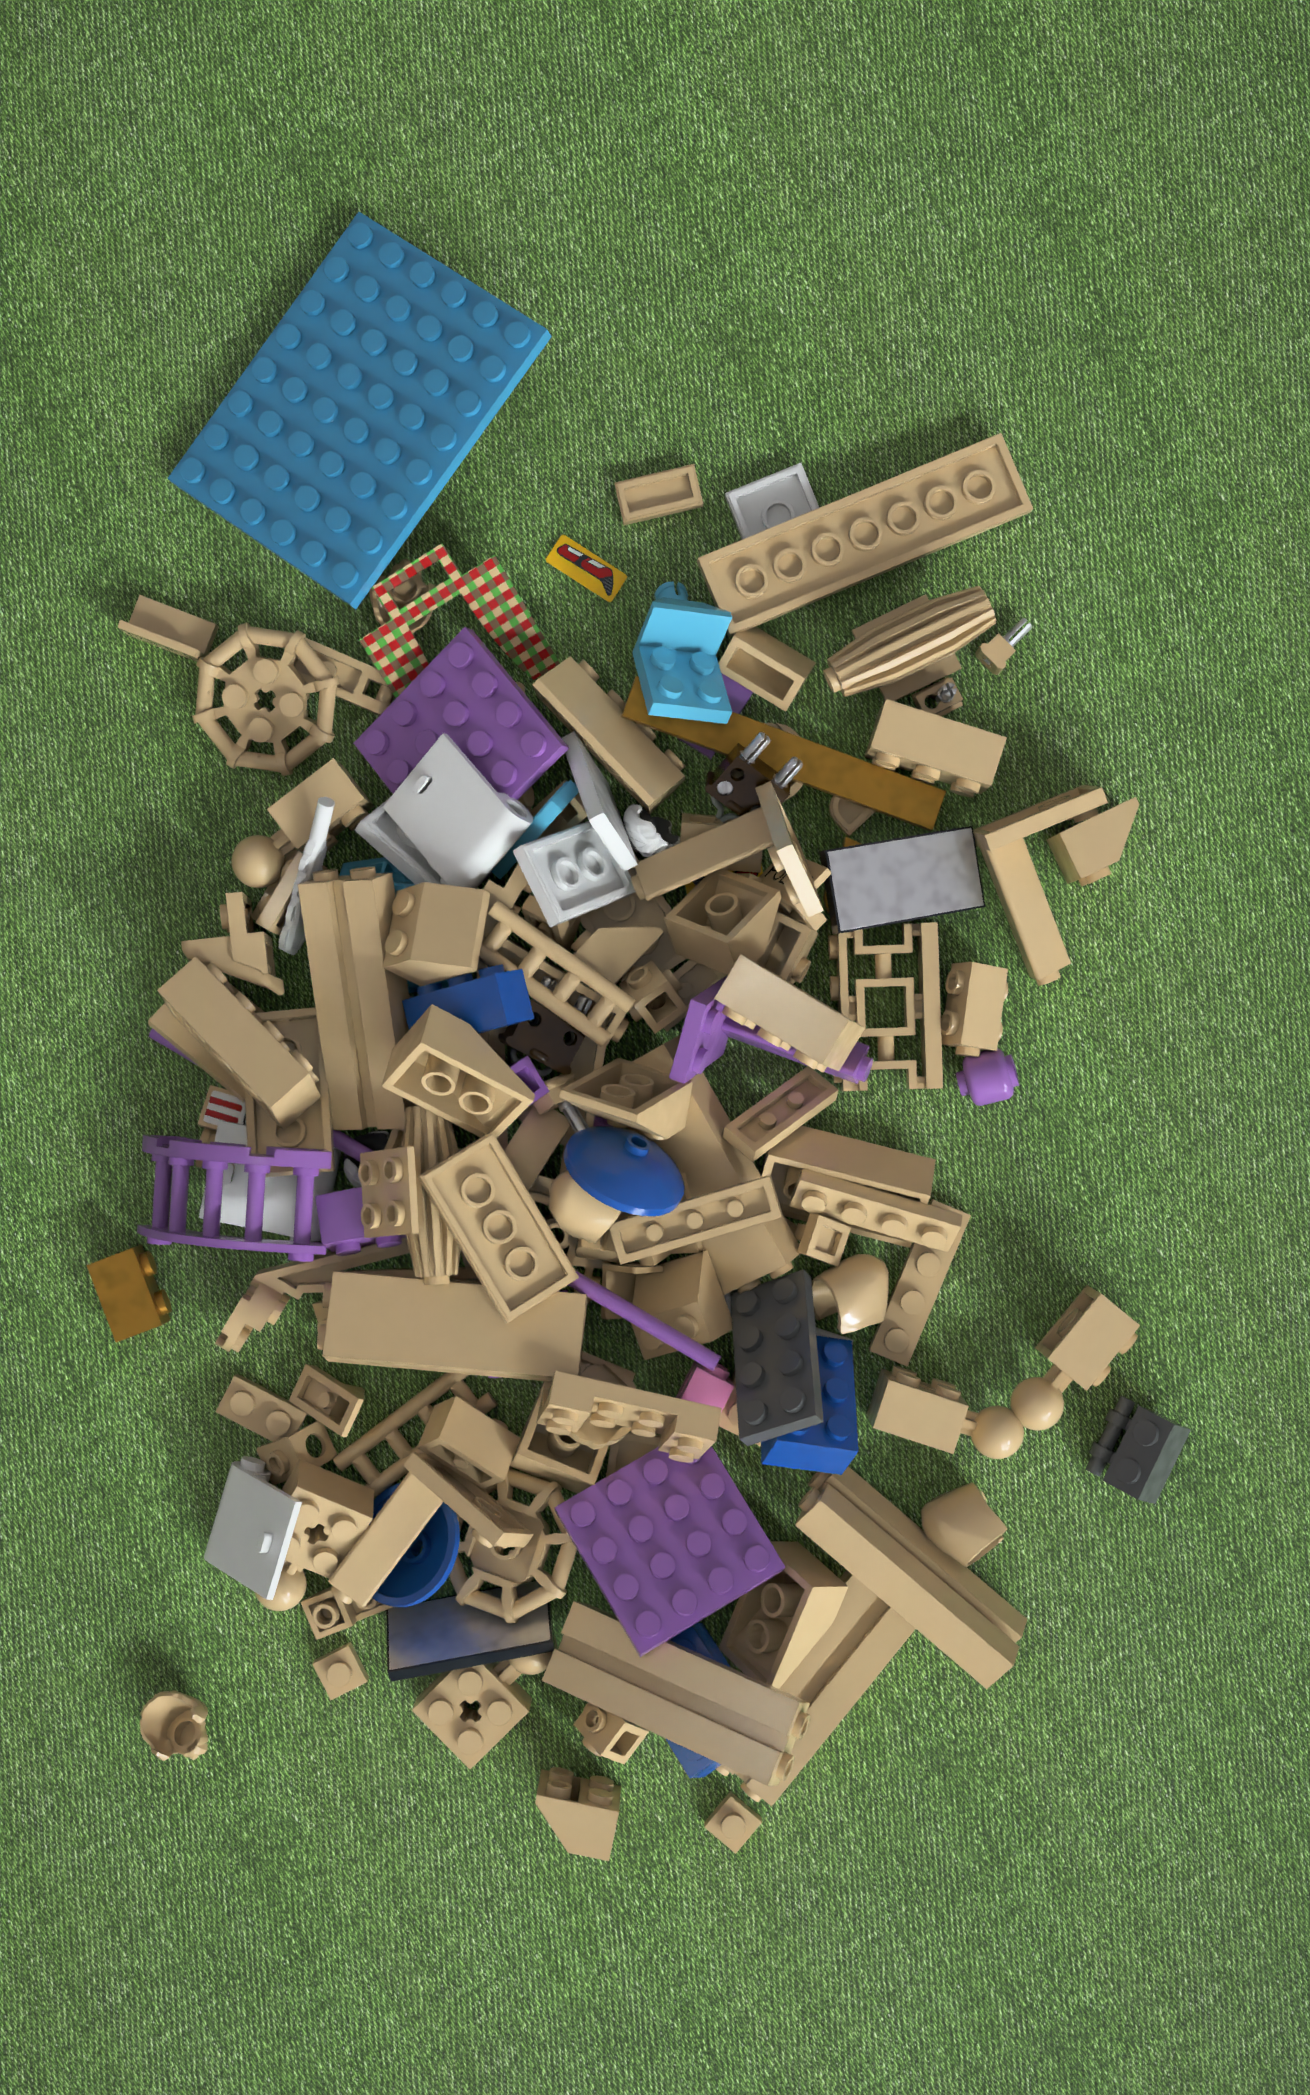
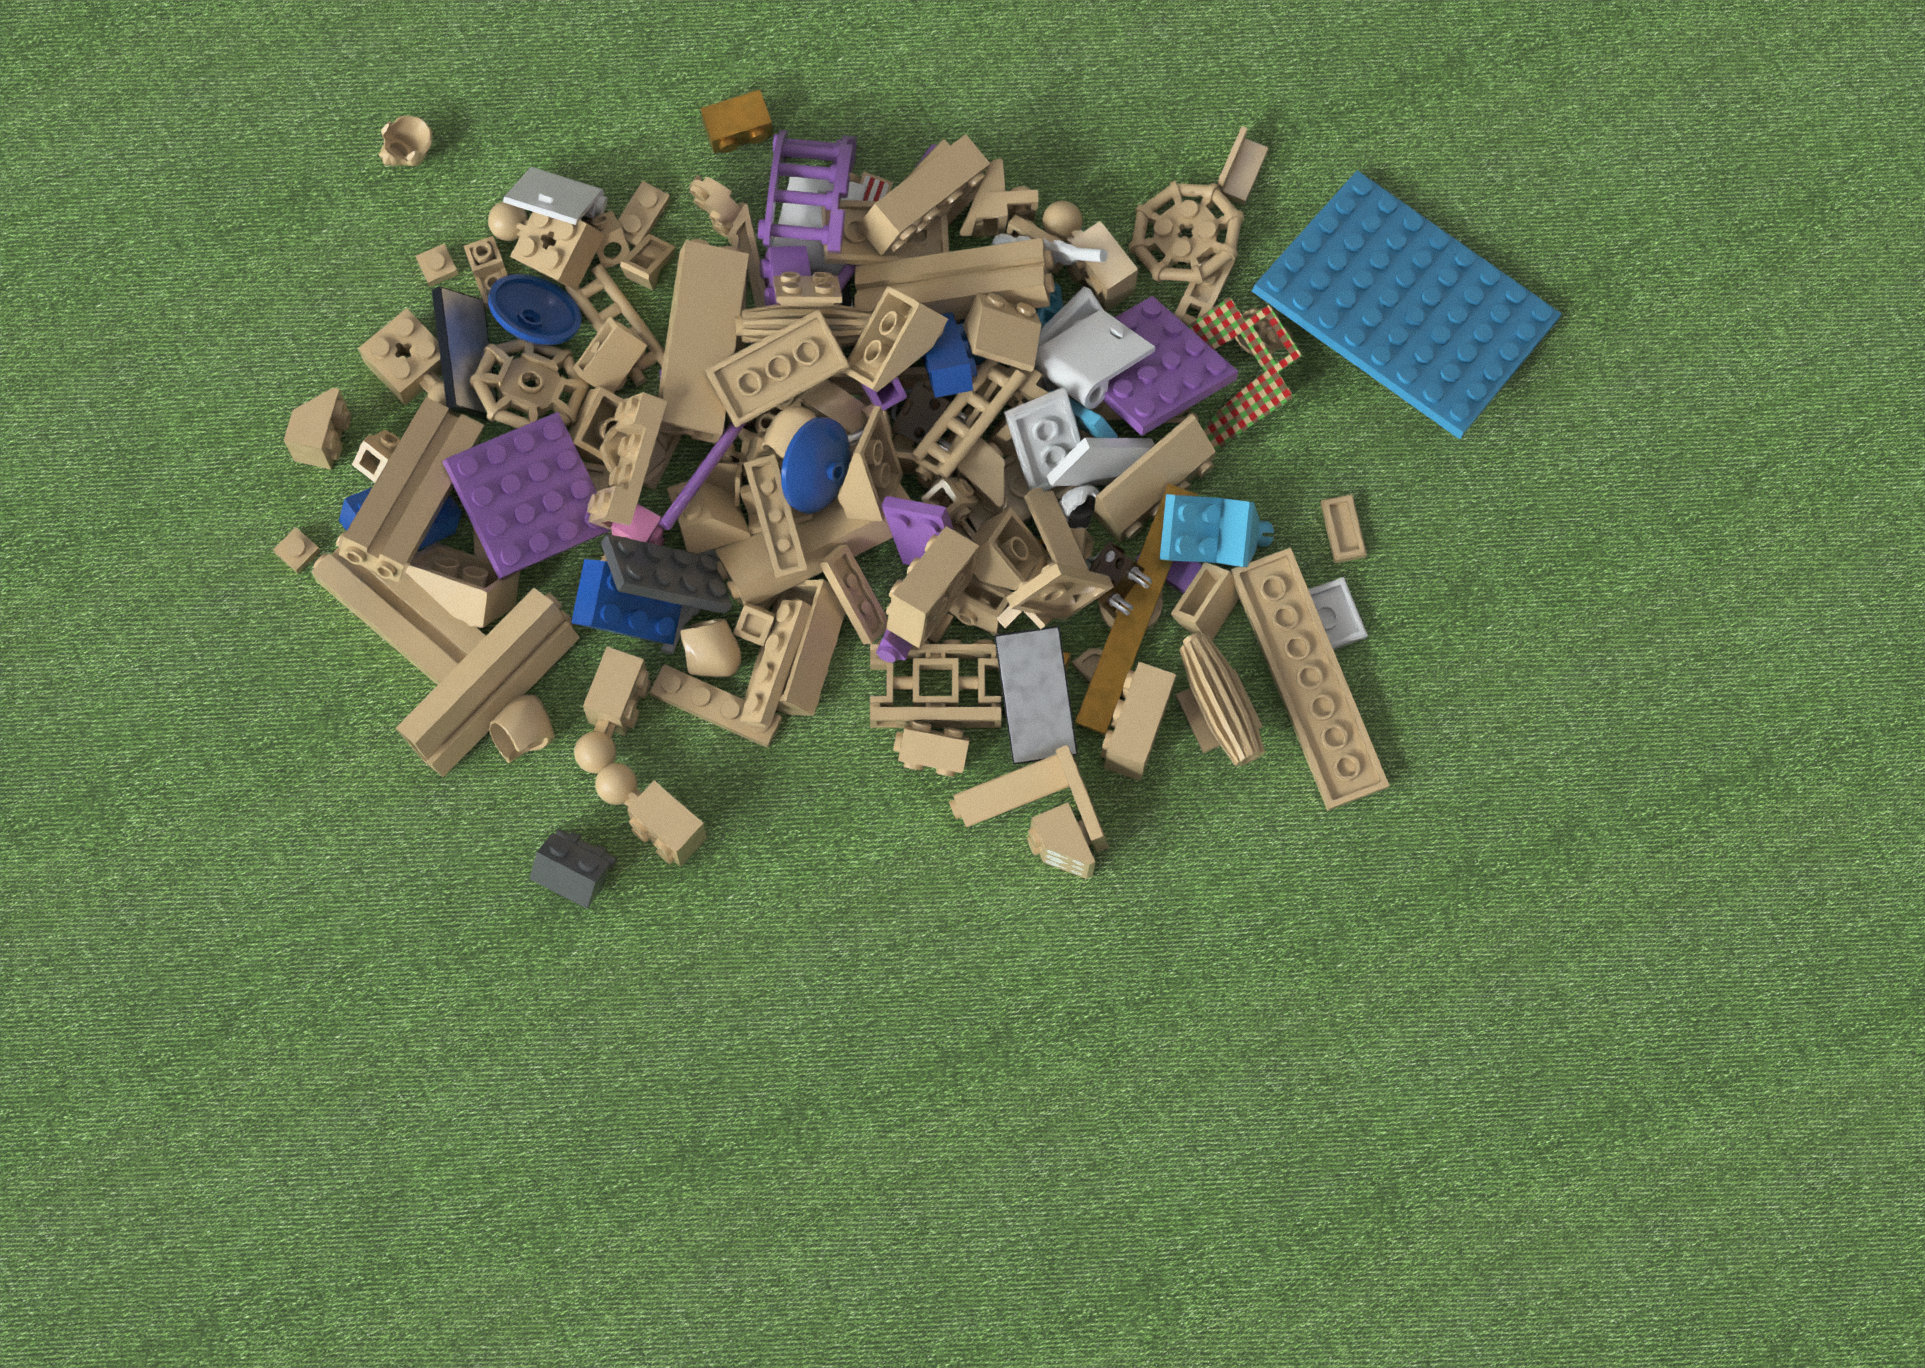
camera: 85 degrees right, 15 degrees down
(407, 1514) = (558, 305): tan piece -> none
(586, 568) = (1286, 474): yellow sticker -> none
(945, 694) = (1180, 740): tan piece -> none
(988, 1077) = (877, 759): medium lavender head -> none
(1000, 649) = (1215, 779): tan piece -> none

